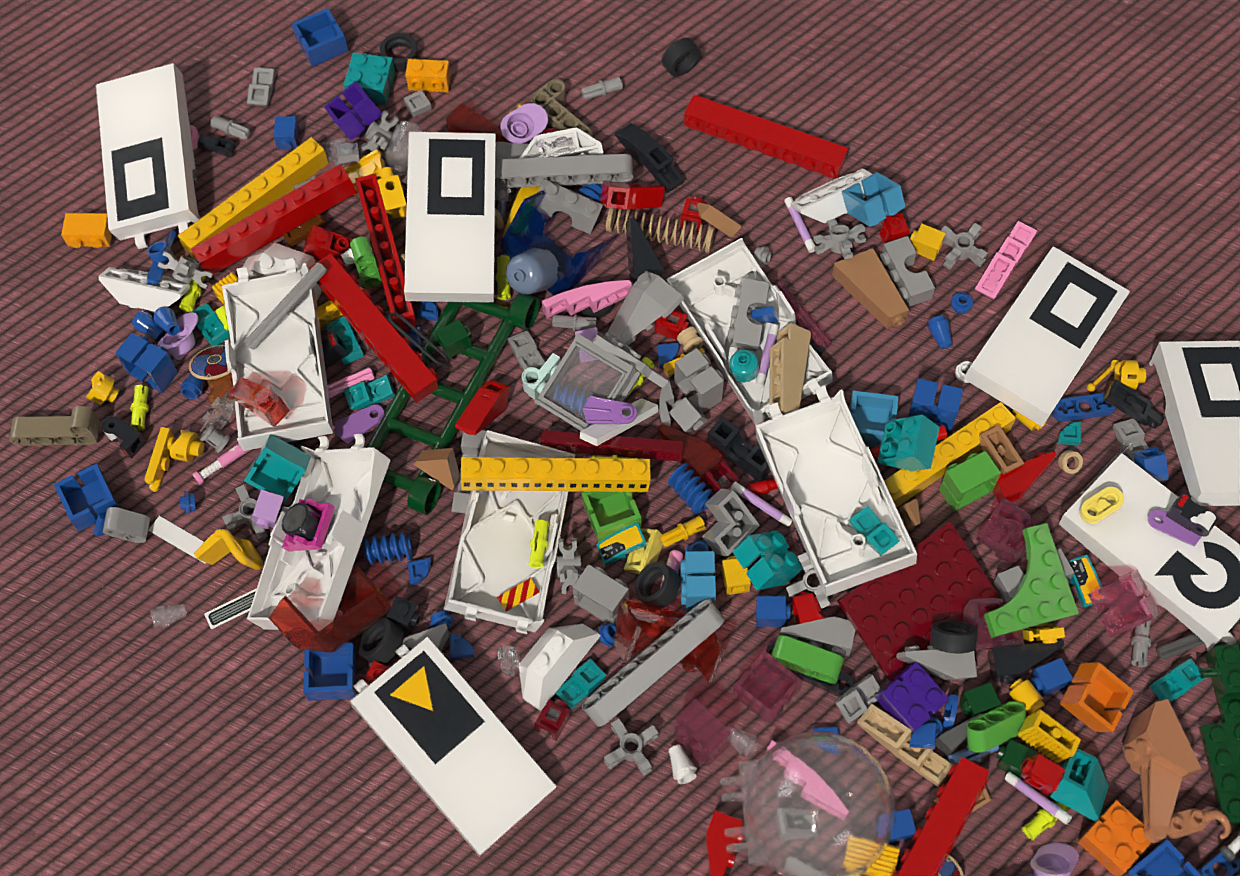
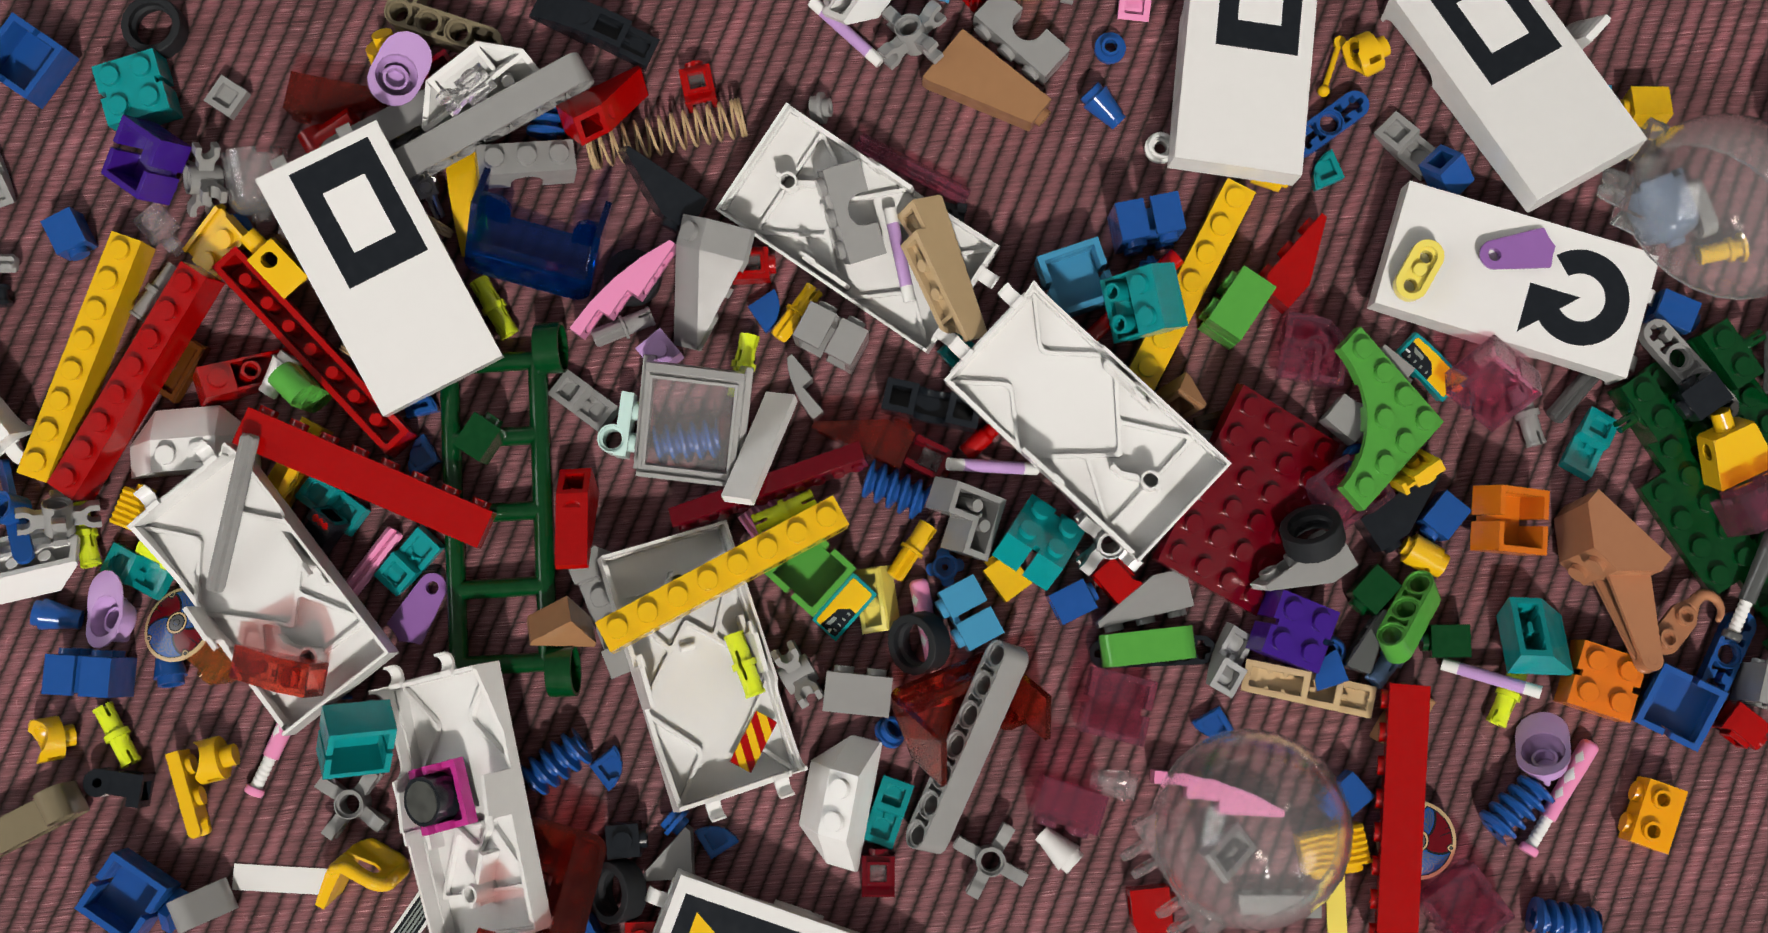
camera: 30 degrees left, 20 degrees up
(166, 319) = (78, 600): blue cone -> none
(187, 502) = (262, 832): blue plate -> none
(214, 438) = (244, 729): light grey bush -> none
(222, 407) = (229, 699): clear hinge -> none
(267, 509) = (375, 800): lavender brick -> none
(347, 152) = (176, 227): light grey plate -> none
(414, 342) = (432, 473): black piece -> none
(428, 75) = (217, 47): light orange brick -> none
(509, 660) = (786, 829): clear plate -> none
(532, 271) = (533, 290): sand blue cylinder -> none
(608, 411) = (740, 447): medium lavender piece -> none
(626, 353) = (700, 354): light grey wing -> none
(688, 415) = (839, 389): light grey brick -> none
(690, 339) = (788, 278): tan wheel -> none
(718, 219) = (737, 85): medium nougat slope -> none
(744, 366) = (886, 298): teal head -> none
(765, 315) = (871, 201): blue tile -> none
(876, 534) = (1161, 453): teal slope -> none
(950, 711) = (1345, 623): blue tile -> none
(1000, 450) = (1257, 249): medium nougat slope -> none
(1042, 773) = (1489, 654): red window -> none
(1049, 736) = (1477, 601): yellow brick -> none
(1063, 458) = (1333, 208): tan piece -> none
(1121, 451) = (1391, 201): sticker -> none
(1133, 404) = (1388, 95): black hinge -> none
(1192, 515) = (1533, 232): black leg -> none

